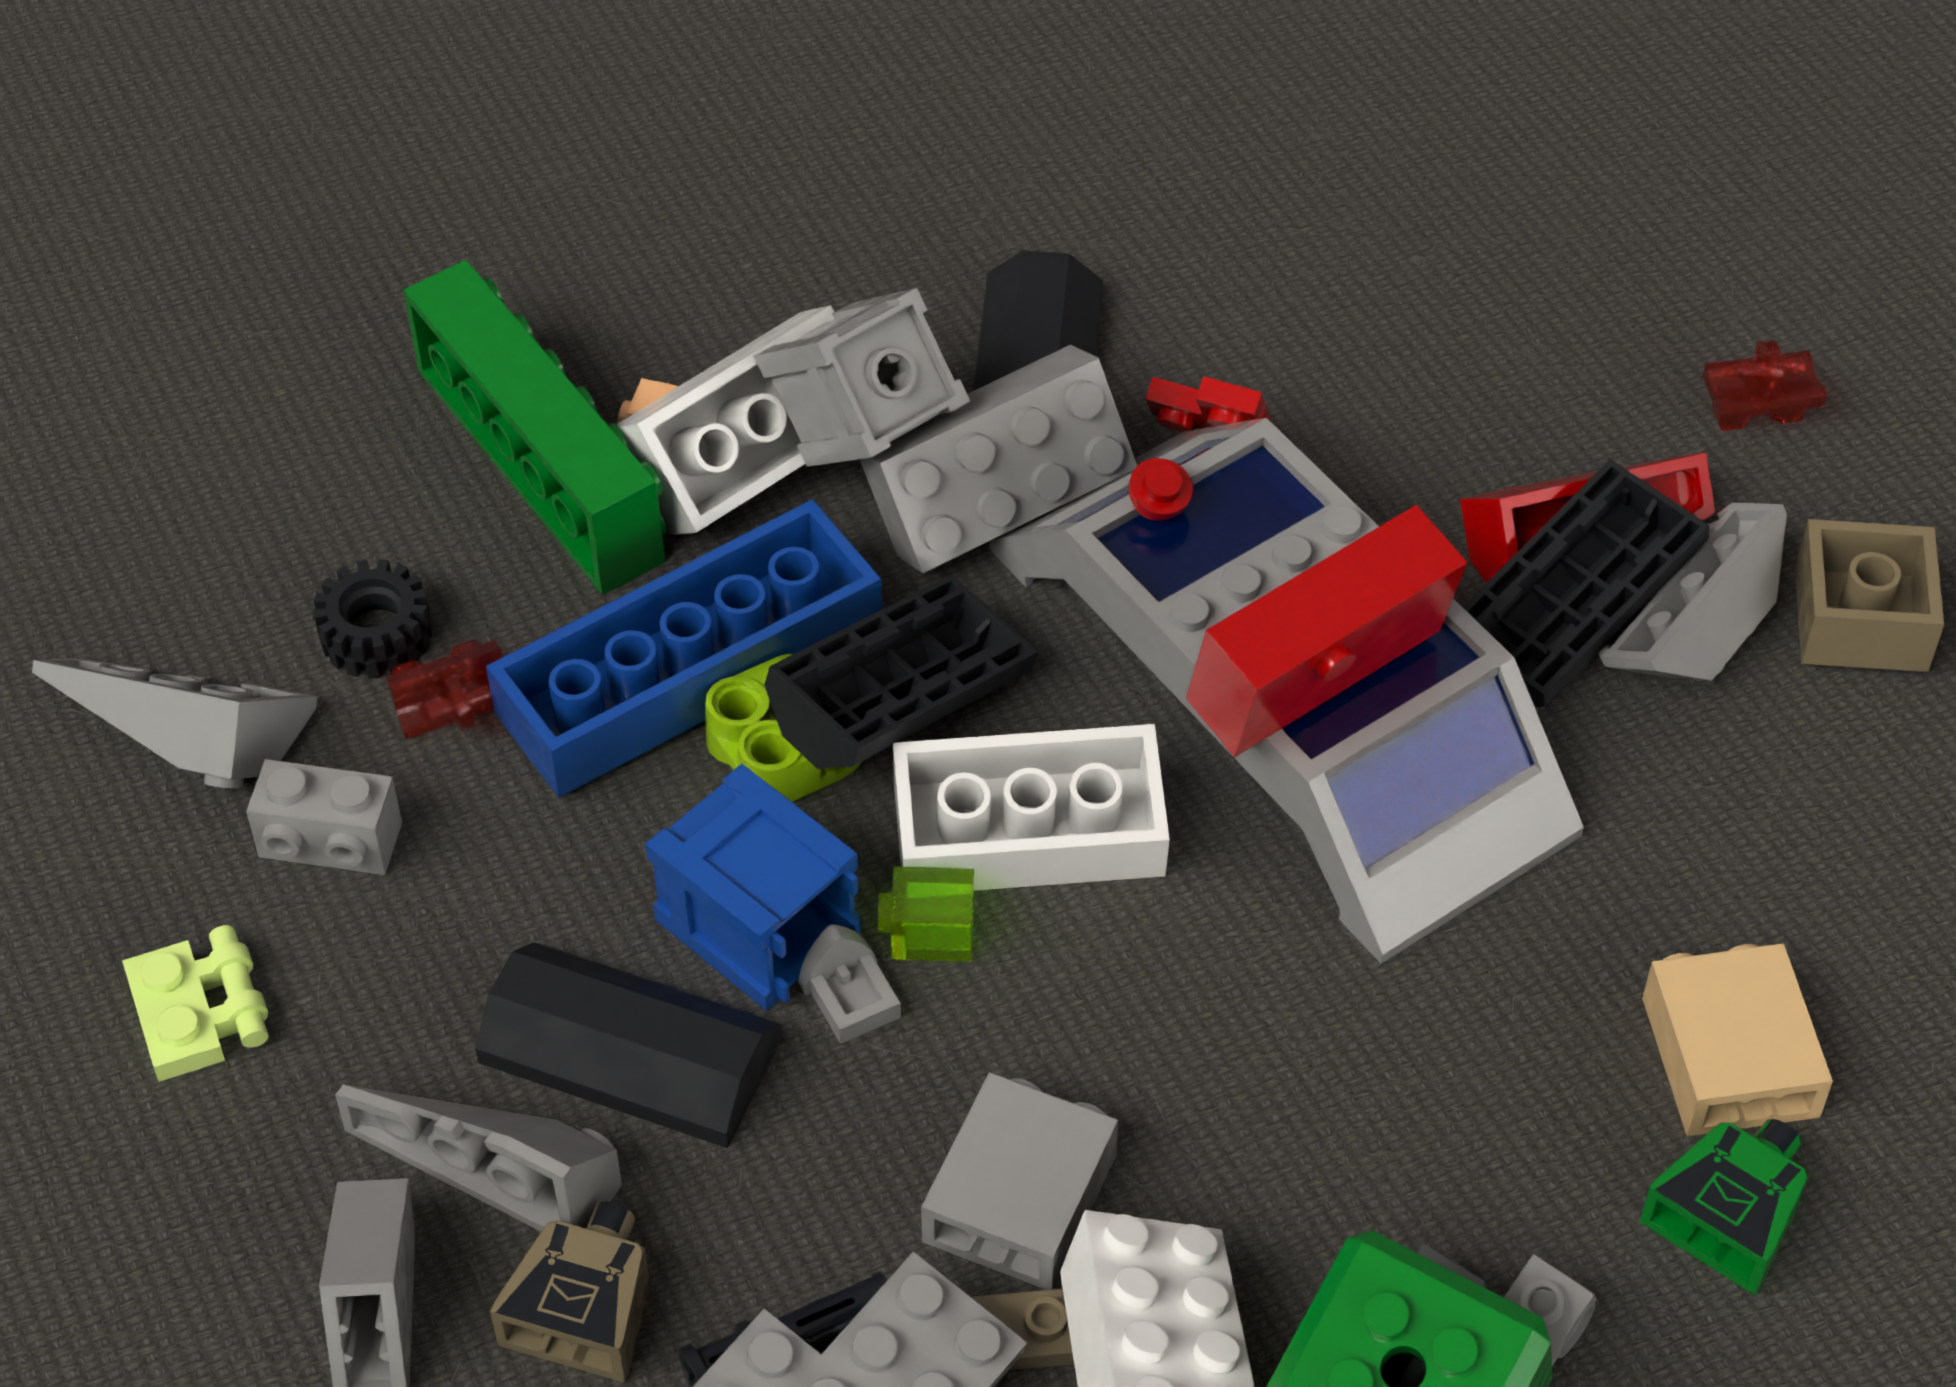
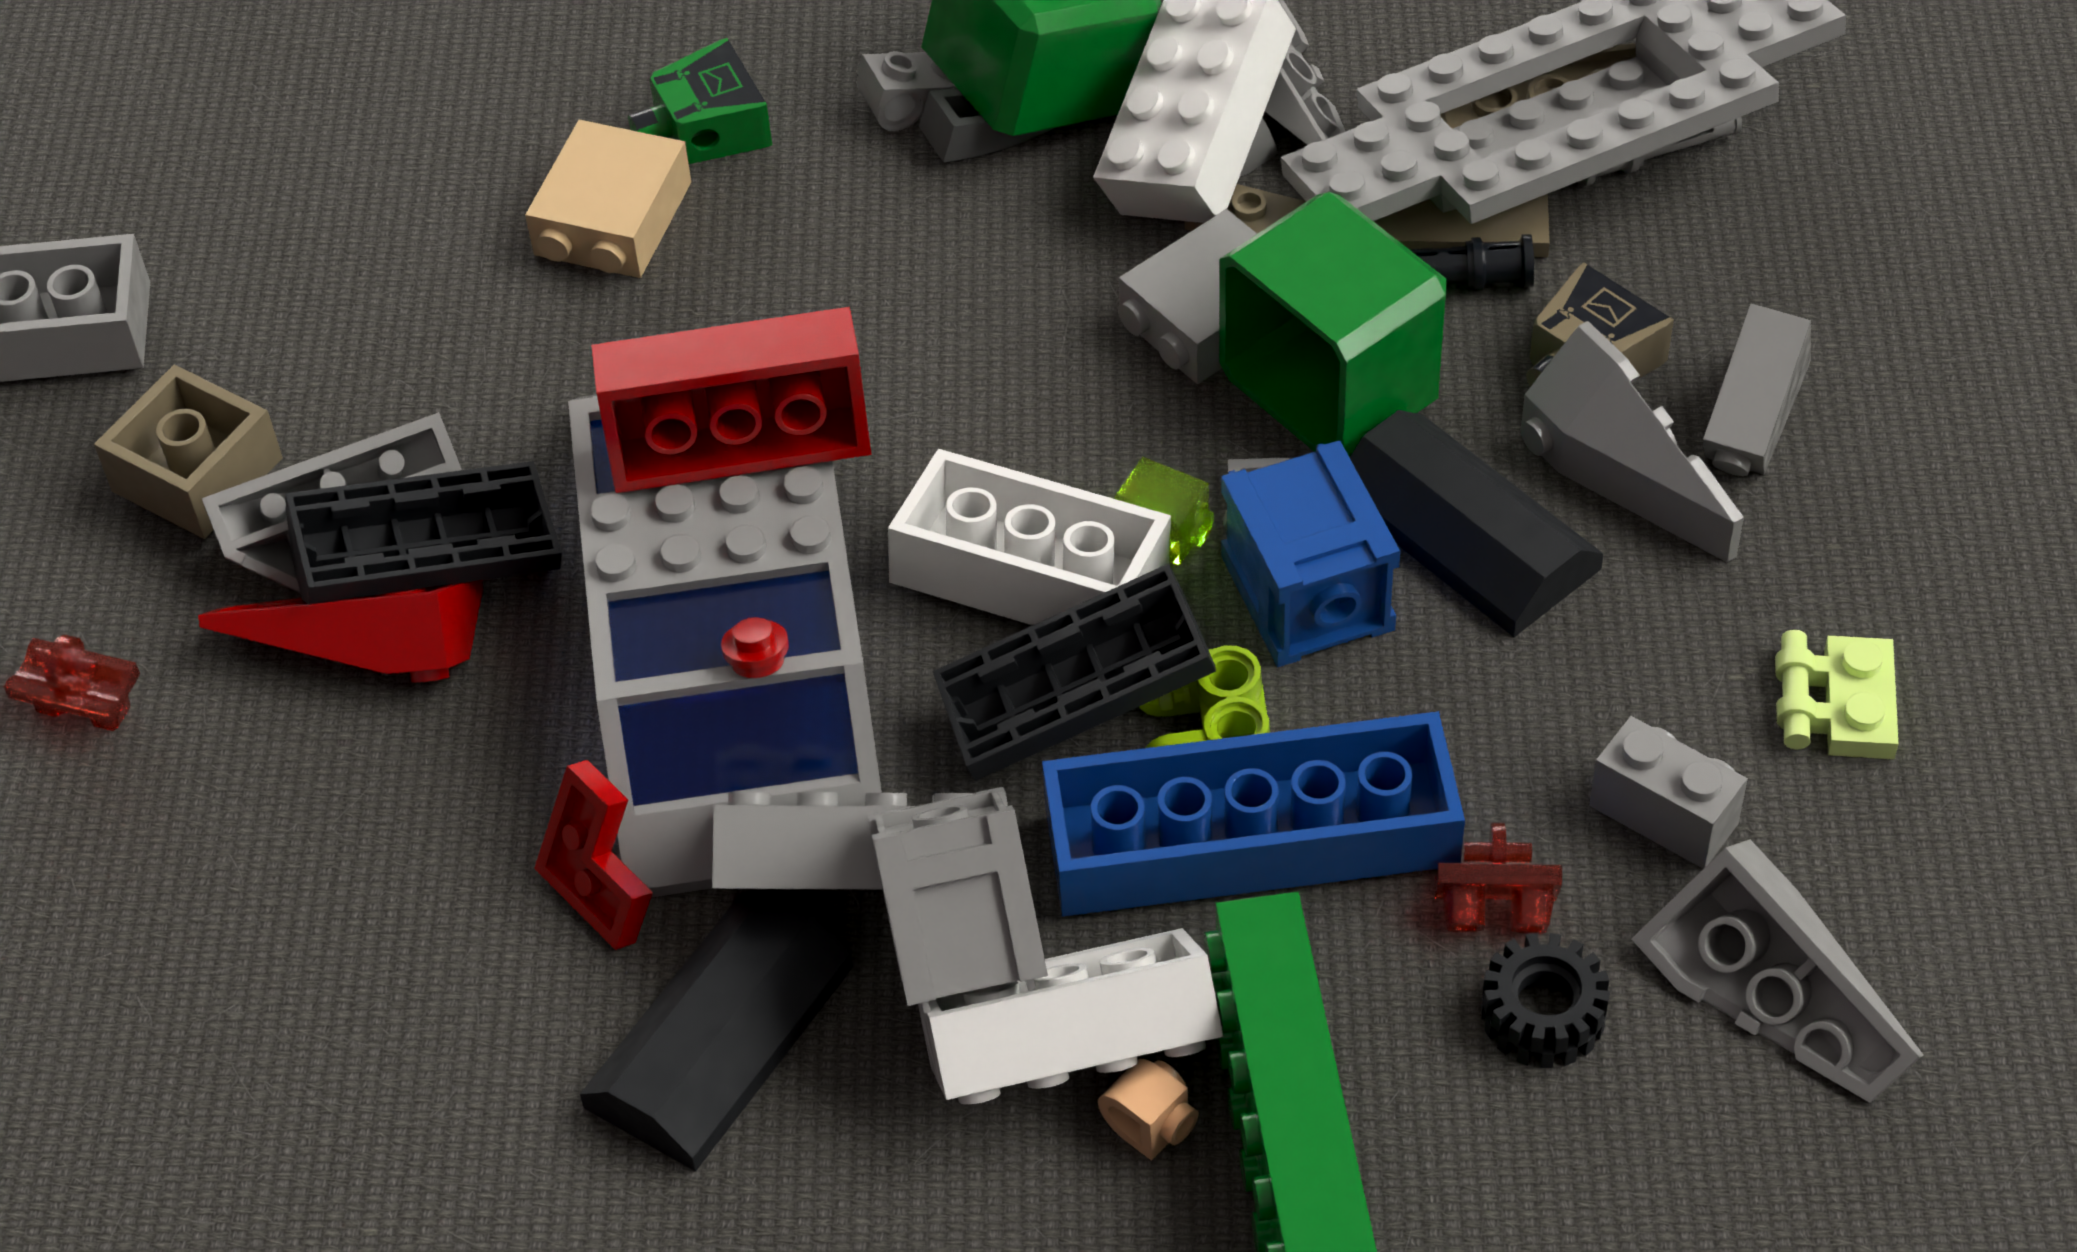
camera: 150 degrees left, 0 degrees up
(842, 1102) = (1330, 323): none -> green plate

